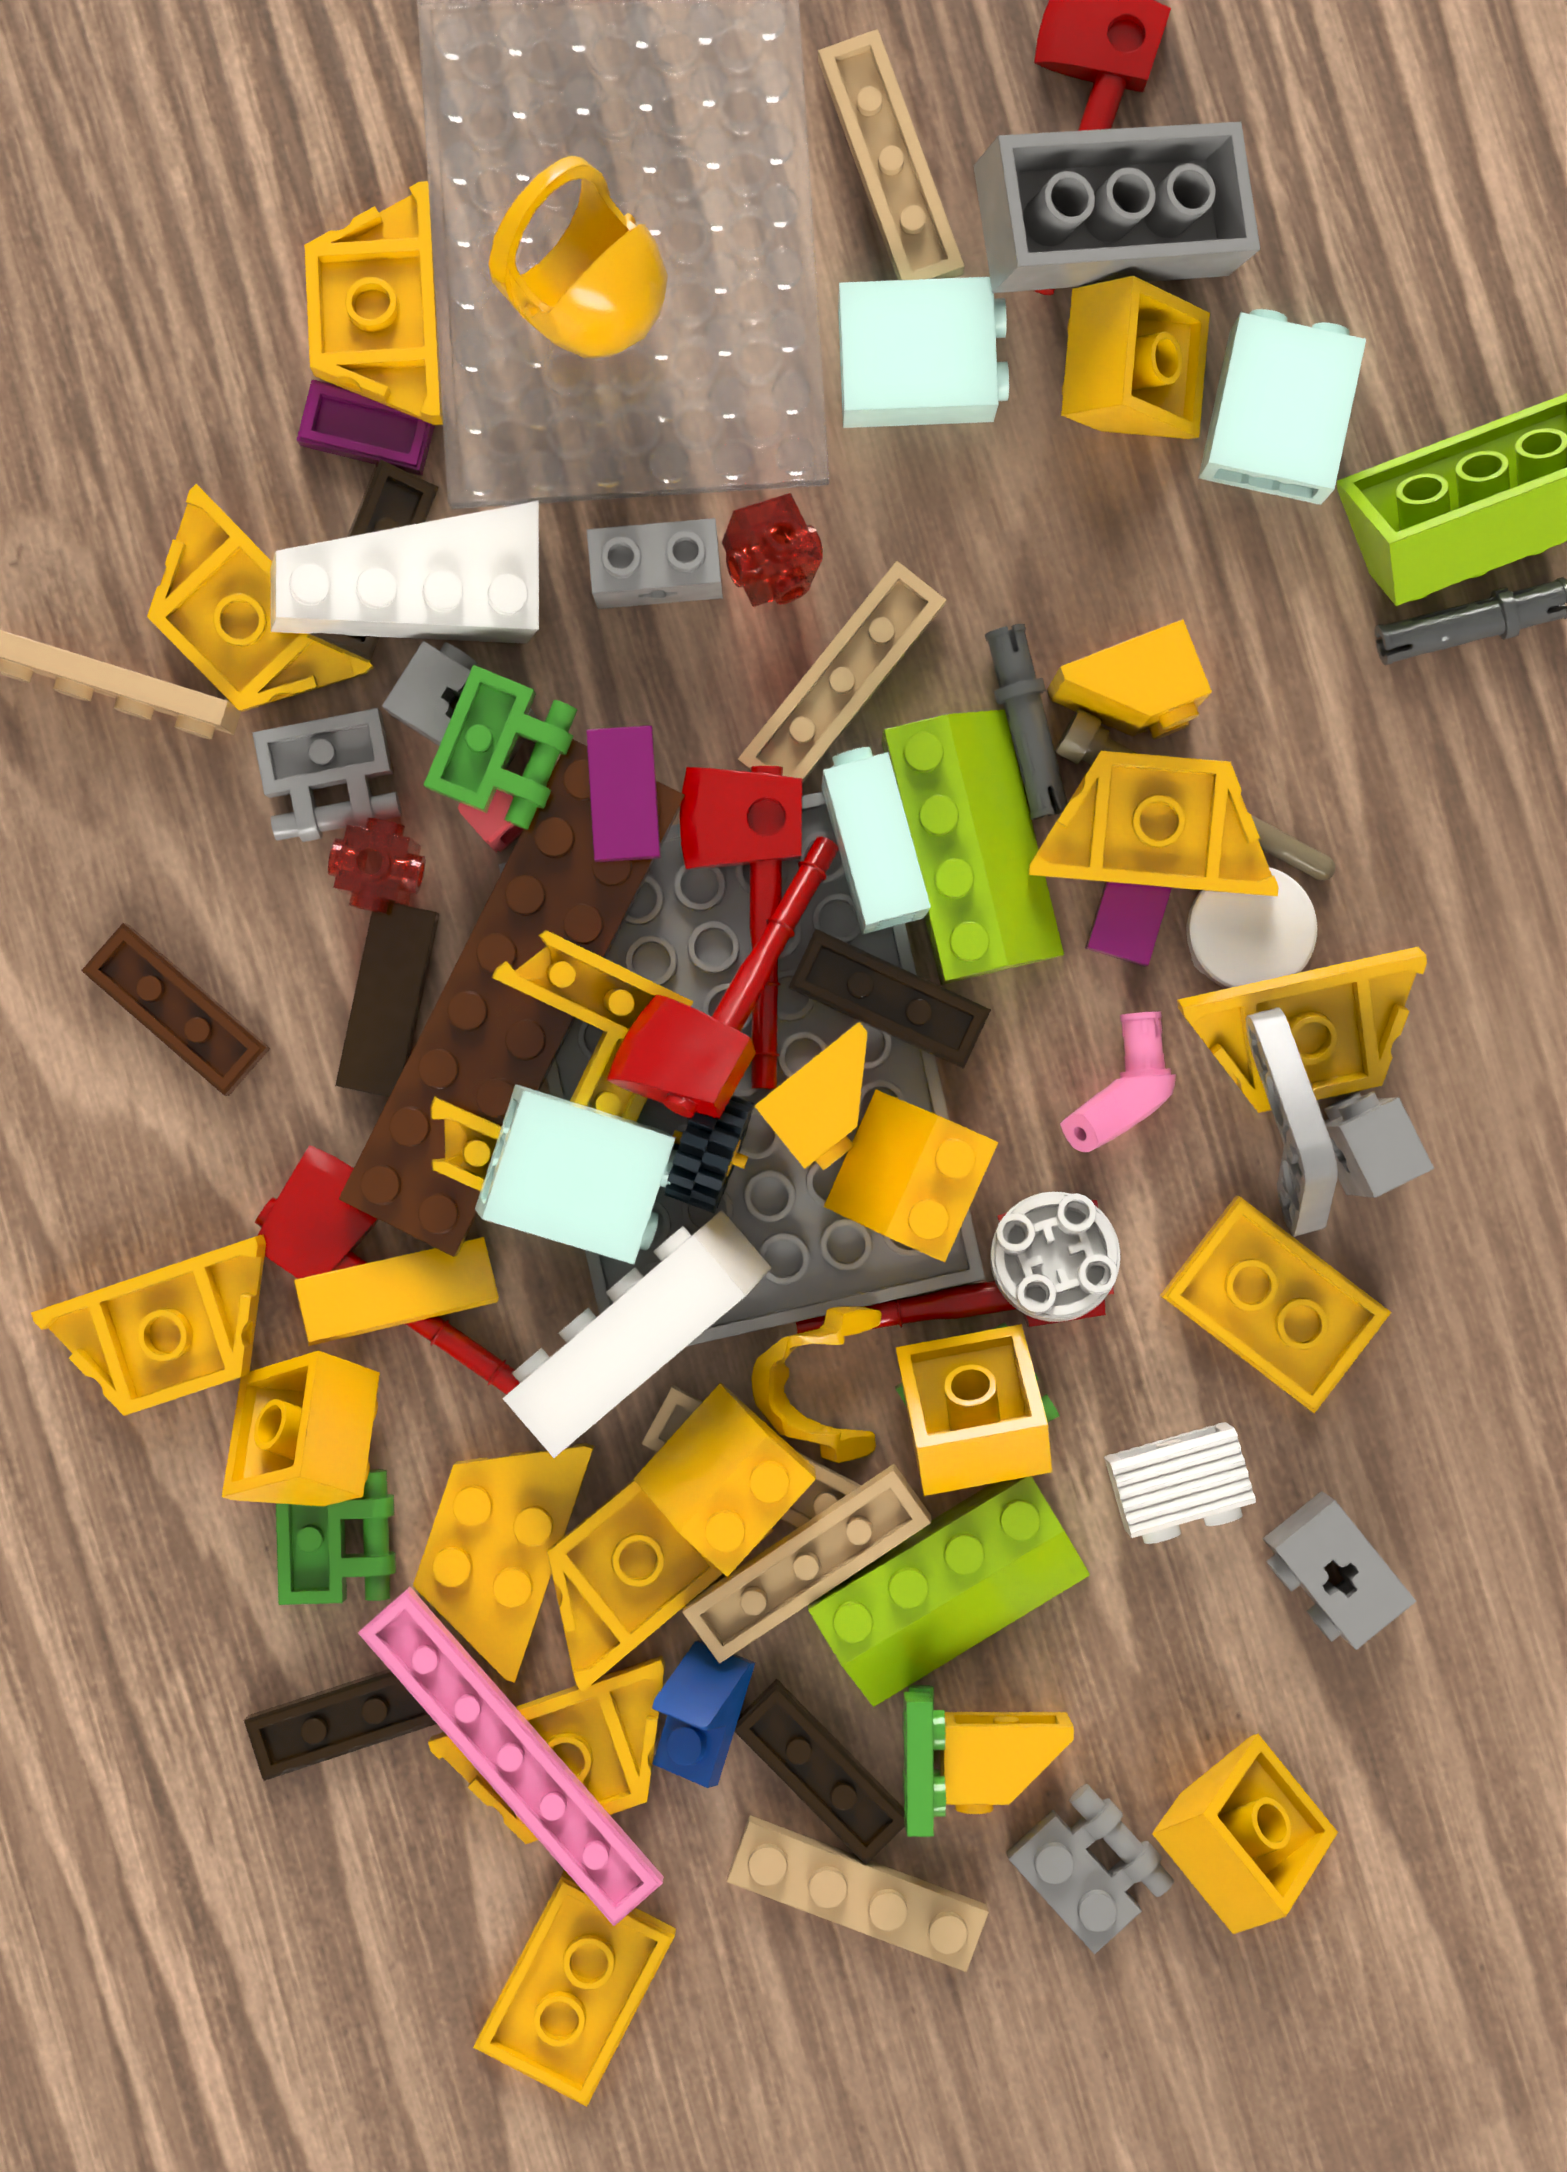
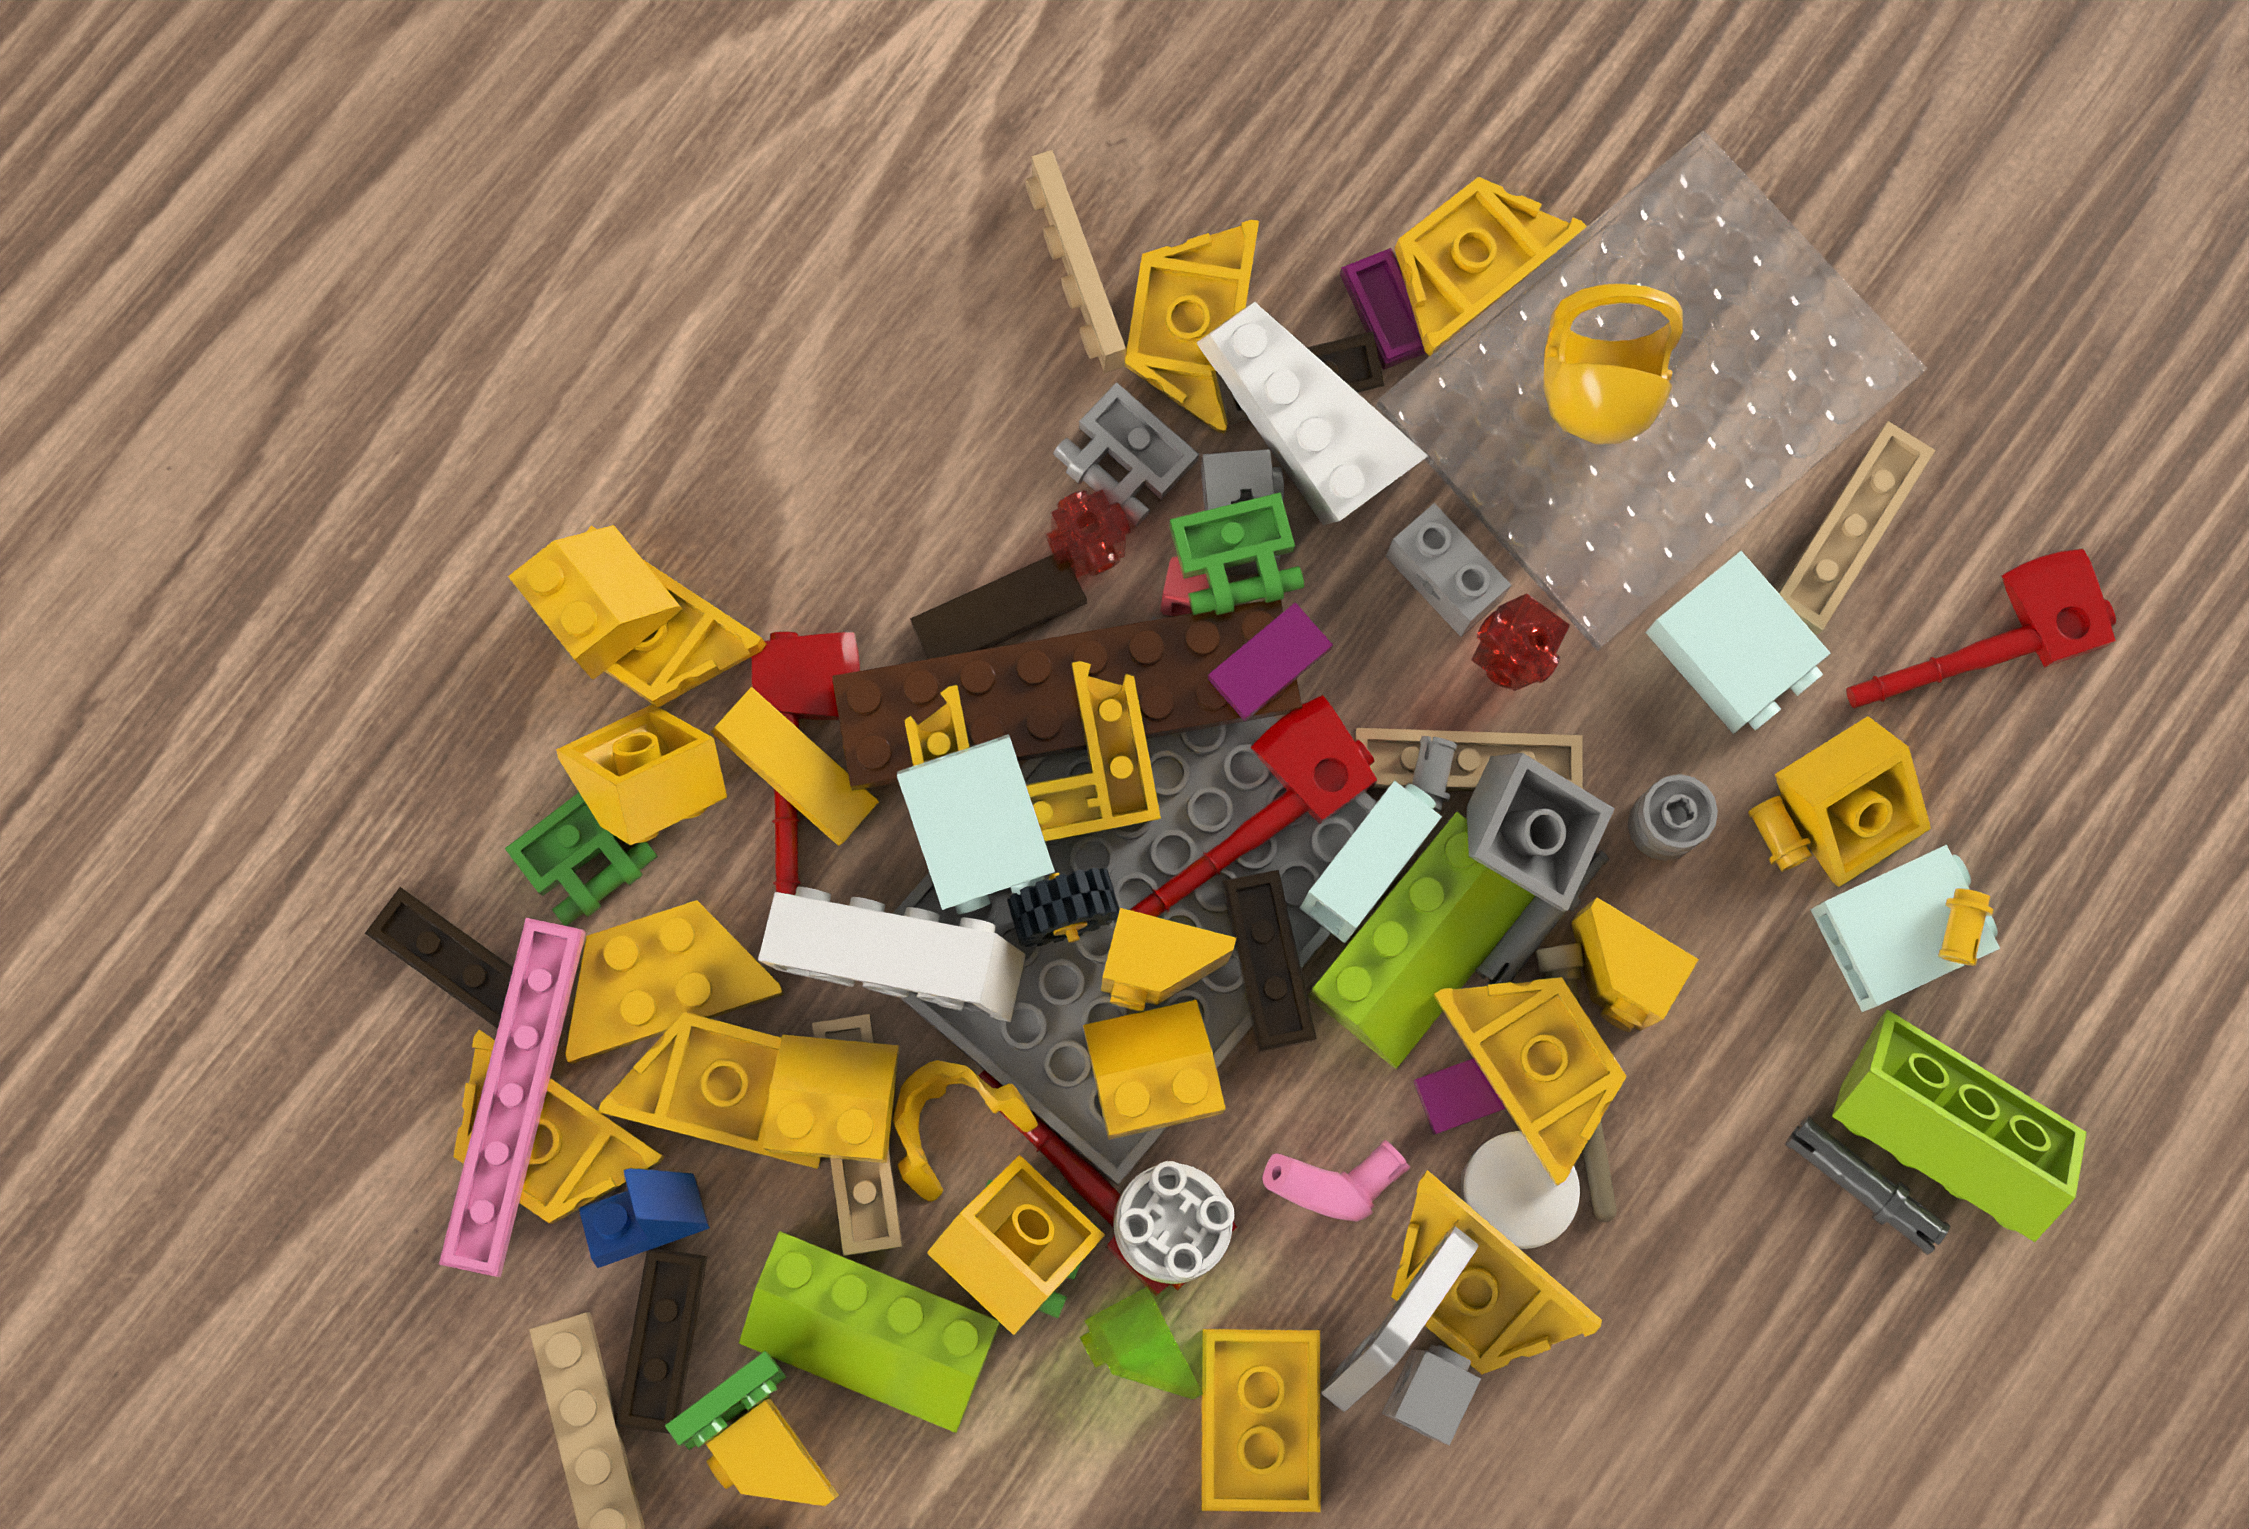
camera: 45 degrees right, 10 degrees down
(102, 1361) = (595, 596): none -> yellow slope
(175, 1009) = (881, 472): reddish brown tile -> none
(573, 1992) = (365, 1277): yellow tile -> none
(699, 1059) = (1122, 846): red piece -> none
(807, 1563) = (812, 1207): tan plate -> none
(830, 721) = (1434, 768): none -> light grey pin
(952, 672) = (1534, 827): none -> light grey slope
(1031, 537) = (1672, 817): none -> light grey wheel
(1115, 452) = (1780, 834): none -> yellow pin
(1116, 205) = (1947, 700): light grey brick -> none
(1137, 1364) = (1139, 1346): none -> clear neon green slope
(1180, 1482) = (1076, 1446): white brick -> none
(1326, 355) = (1964, 926): none -> yellow pin

